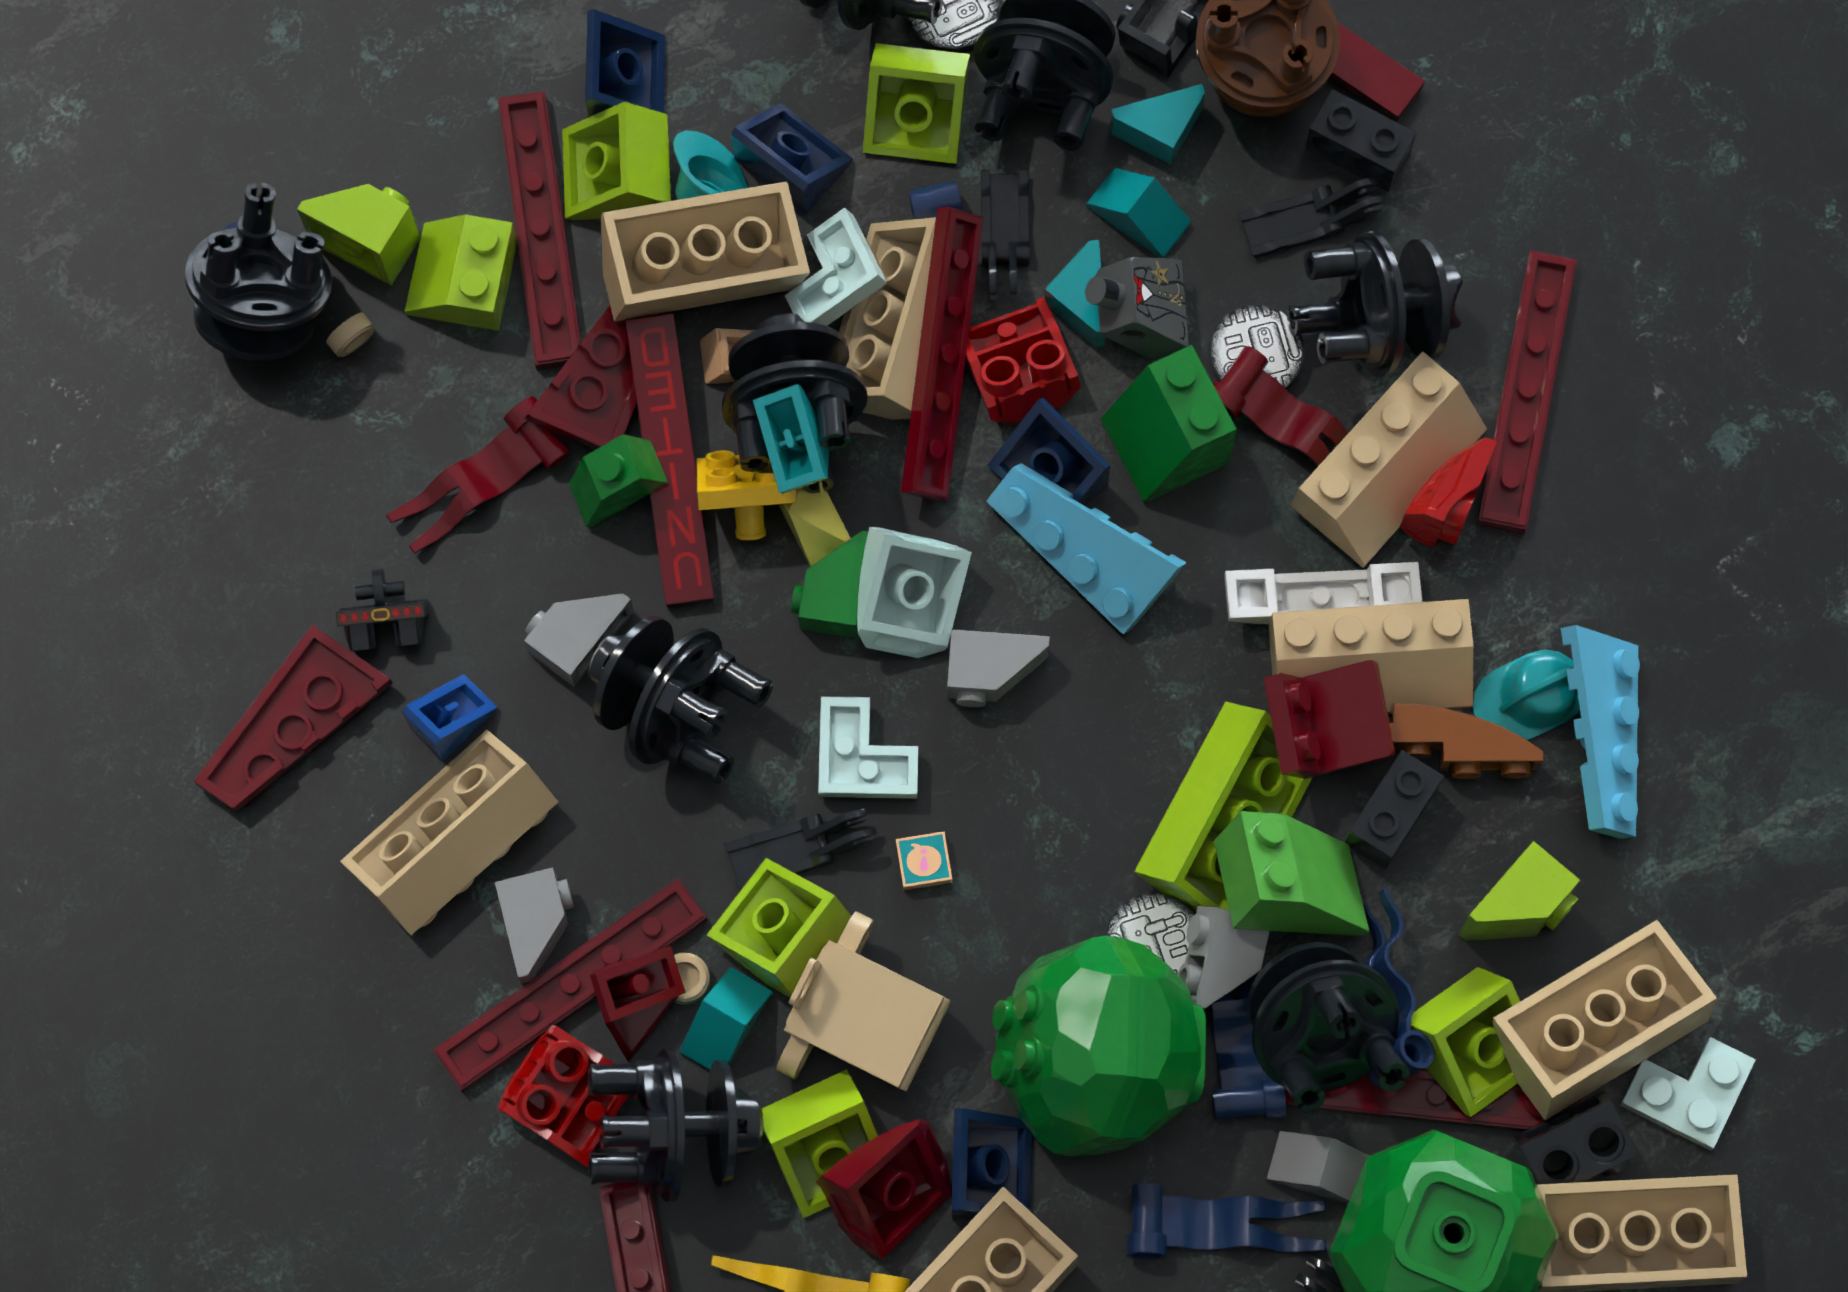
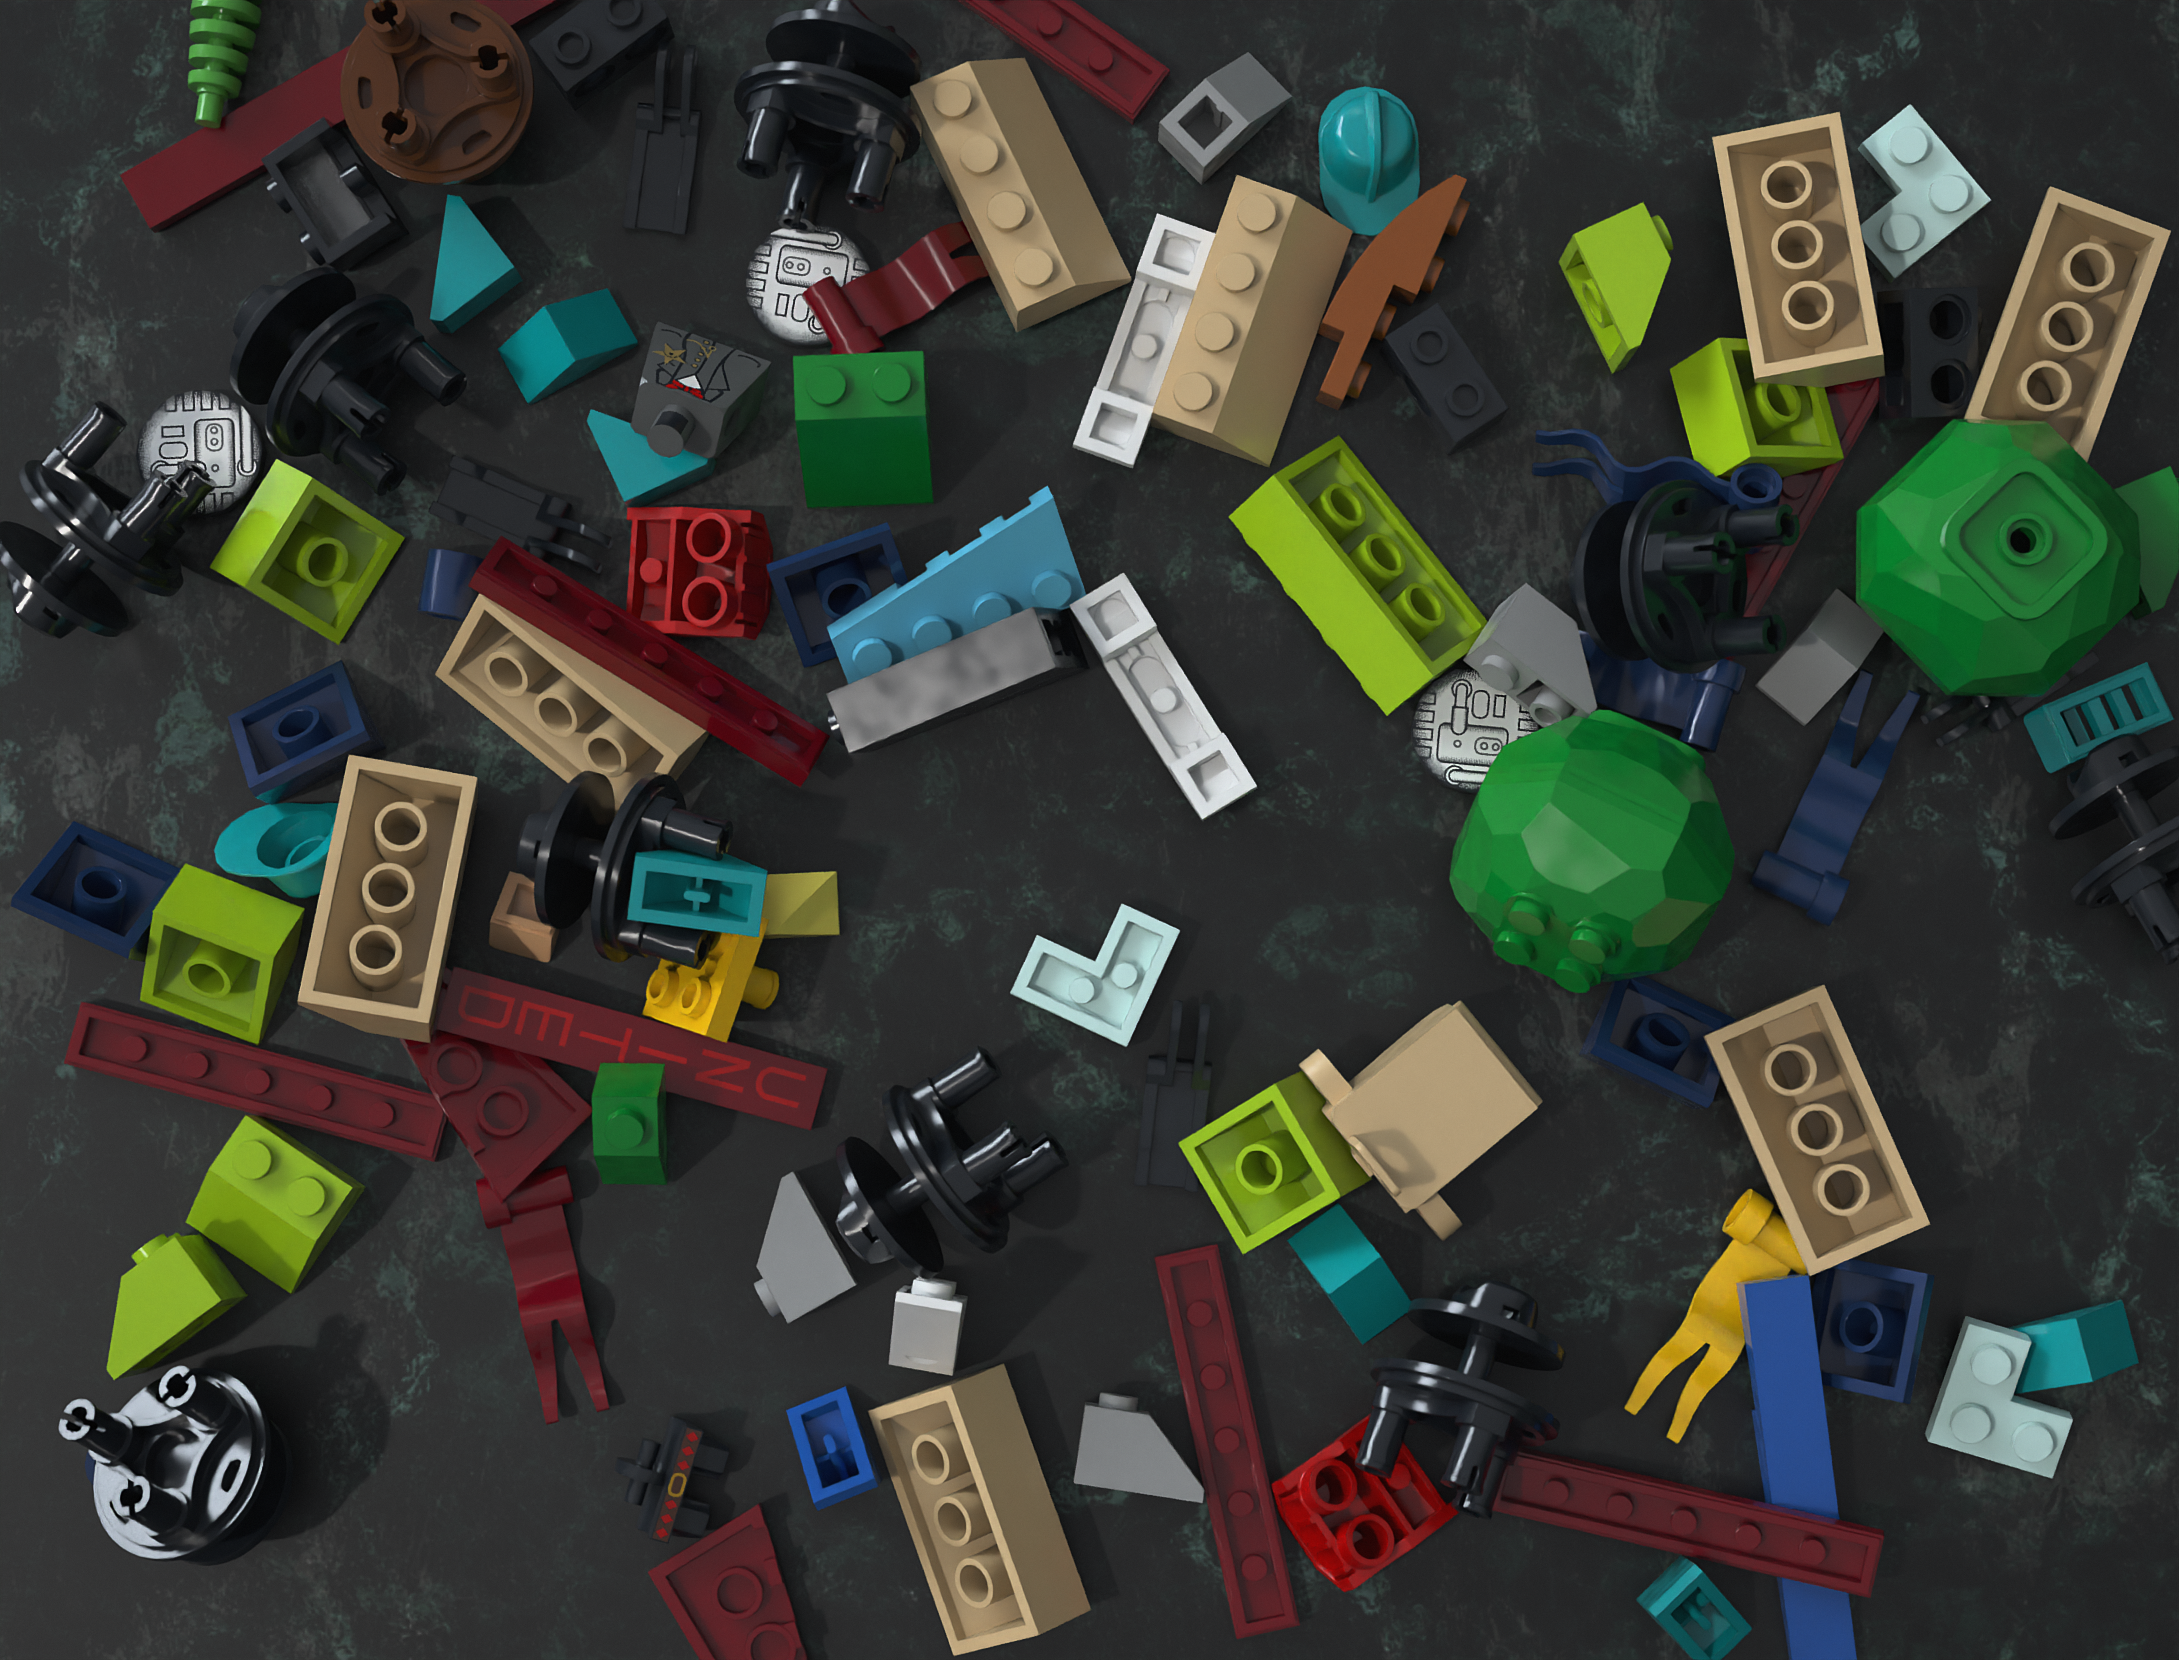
camera: 70 degrees left, 10 degrees up
(350, 335) = (294, 1373): tan tile -> none
(563, 734) = (927, 1326): none -> white slope
(637, 995) = (1277, 1369): dark red slope -> none
(694, 977) = (1277, 1300): tan tile -> none
(814, 1133) = (1549, 1220): lime slope -> none
(831, 591) = (884, 918): green slope -> none
(846, 274) = (497, 733): light aqua plate -> none
(888, 1186) = (1637, 1168): dark red slope -> none
(909, 592) = (927, 829): light aqua slope -> none
(924, 860) = (1259, 956): tile -> none
(990, 664) = (1058, 775): light grey slope -> none
(1027, 568) = (957, 679): none -> slope
(1077, 712) = (1162, 697): none -> white slope
(1288, 877) = (1482, 540): bright green slope -> none
(1329, 719) = (1315, 402): dark red bracket -> none
(1447, 496) = (1101, 140): red slope -> none
(1510, 576) = (1221, 116): none -> light grey slope
(1608, 702) = (1458, 89): medium azure wing -> none

